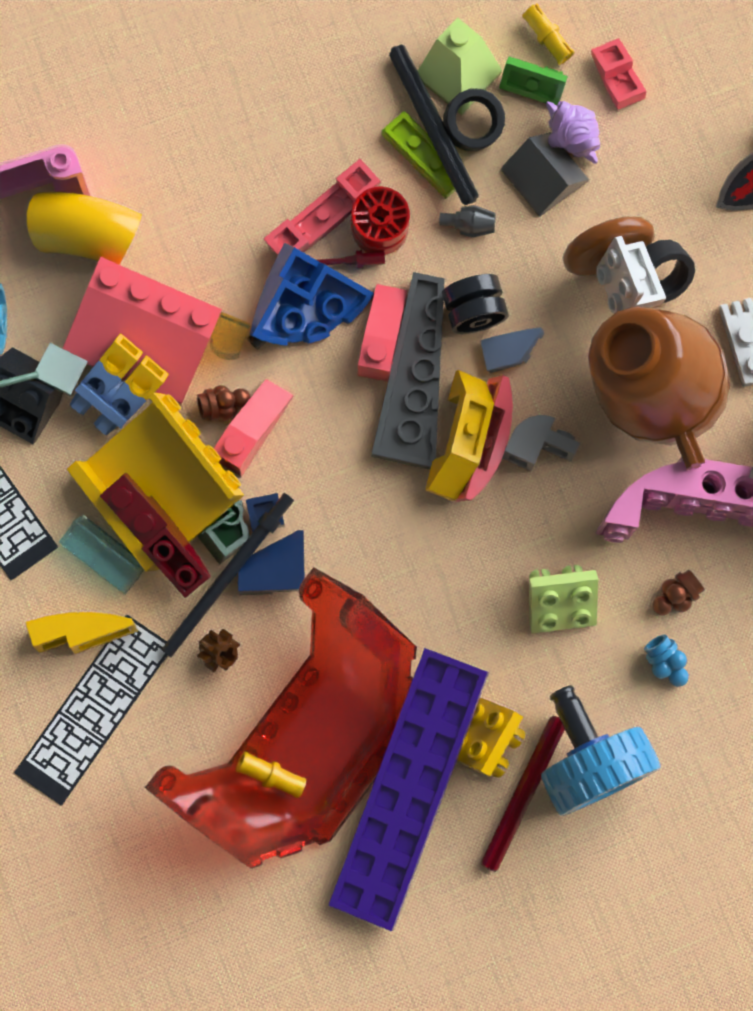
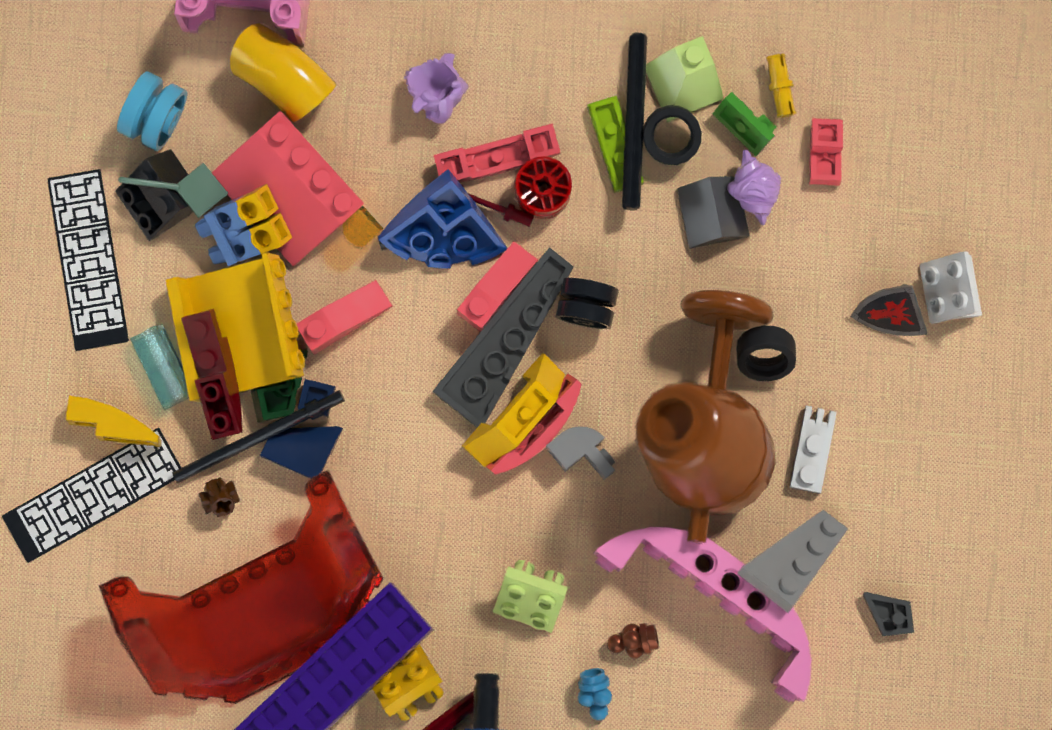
camera: 25 degrees right, 5 degrees up
(220, 402) = (327, 283): copper piece -> none
(235, 177) = (435, 88): none -> lavender hair
(271, 774) = (211, 624): yellow pin -> none
(471, 221) = (624, 224): dark grey piece -> none
(509, 348) = (599, 355): sand blue slope -> none
(629, 276) = (726, 350): white bracket -> none

